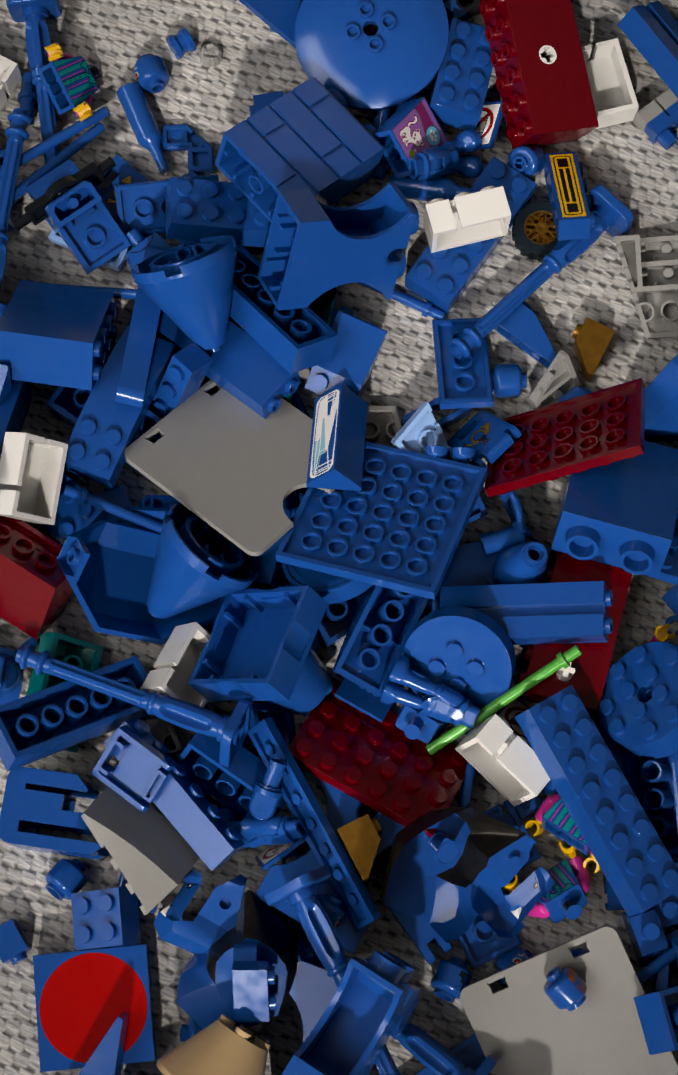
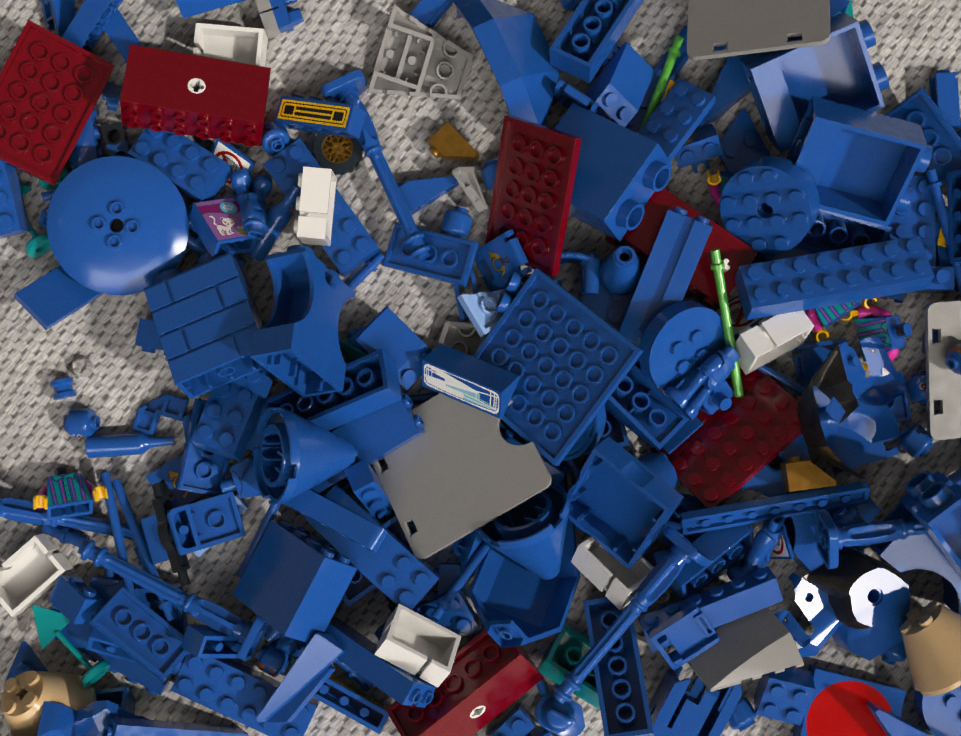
camera: 70 degrees left, 10 degrees up
(252, 985) = (887, 600): hinge -> none
(267, 792) = (739, 535): blue arm -> none

